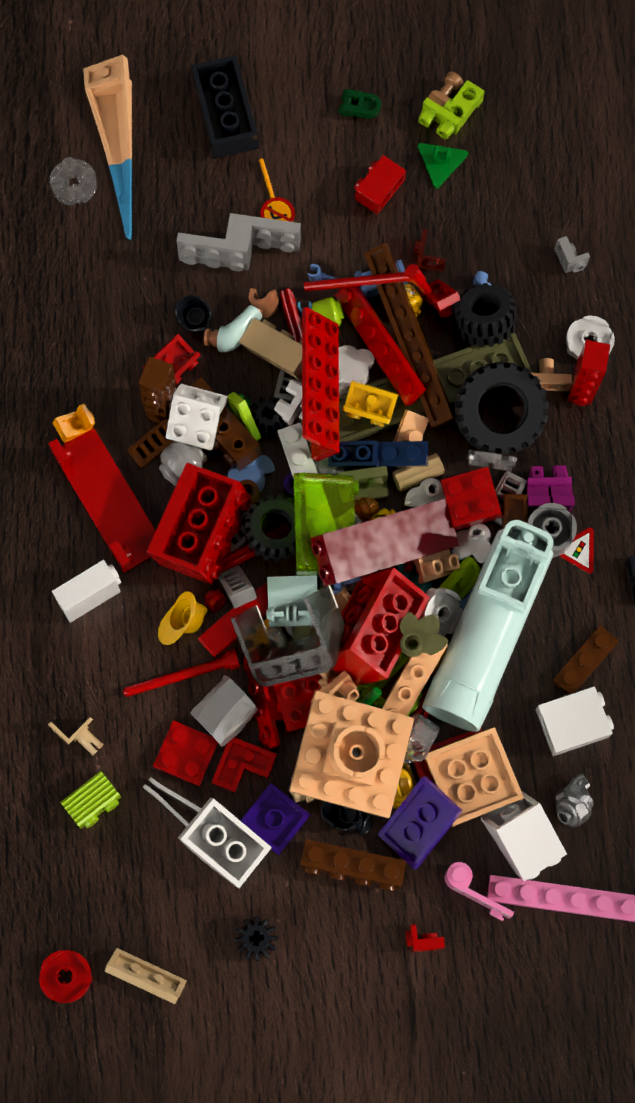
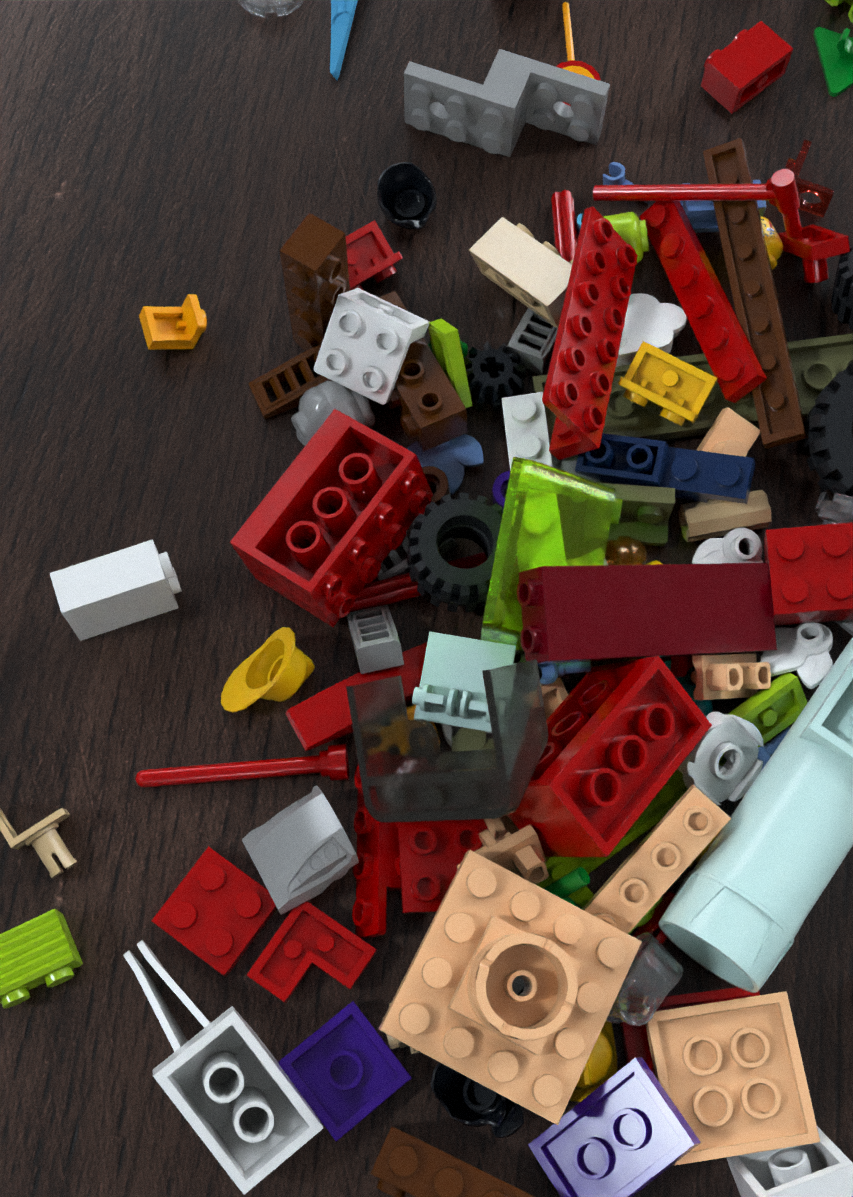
camera: 15 degrees right, 5 degrees down
(106, 497) = (192, 449): red bracket -> none
(215, 600) = (332, 654): red plate -> none
(228, 336) = (453, 240): piece -> none
(290, 411) = (533, 369): white hips -> none
(422, 631) = (691, 785): olive plate -> none

